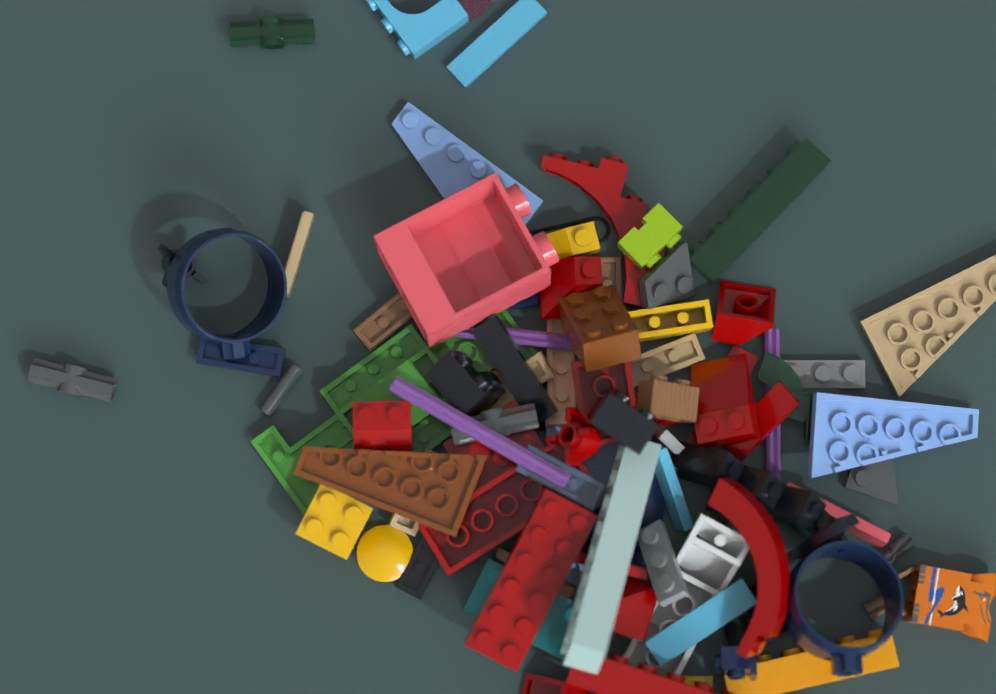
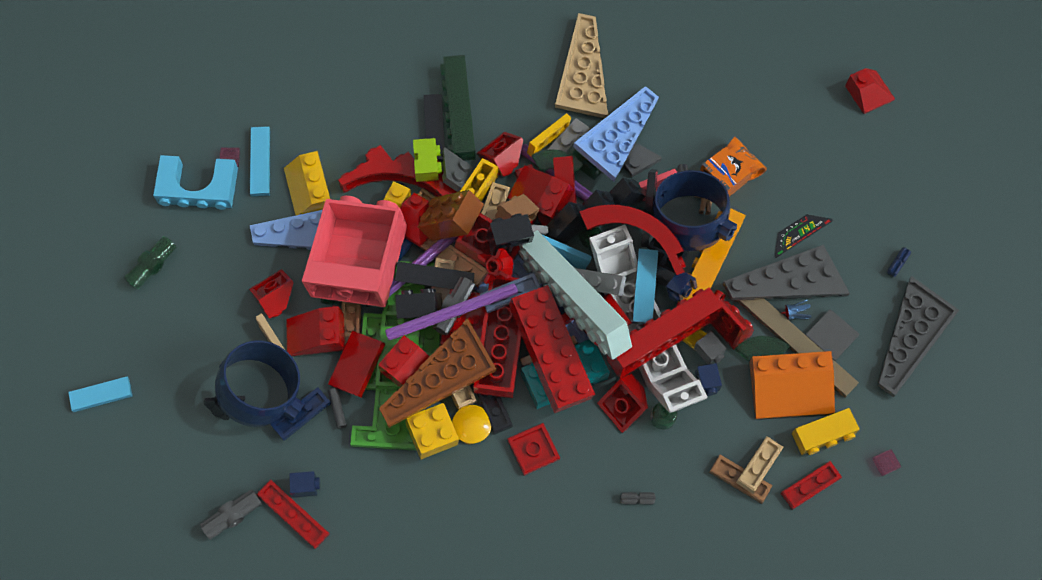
camera: 55 degrees left, 15 degrees down
(84, 119) = (100, 394): none -> medium azure tile
(128, 444) = (293, 514): none -> red tile
(167, 429) = (304, 484): none -> dark blue brick
(344, 290) = (316, 332): none -> red slope
(344, 369) = (356, 364): none -> red tile
(350, 201) = (273, 293): none -> red slope
(413, 644) = (533, 449): none -> red tile
(511, 123) = (306, 183): none -> yellow slope
(716, 198) = (434, 120): none -> black tile
(810, 349) = (548, 135): none -> yellow tile

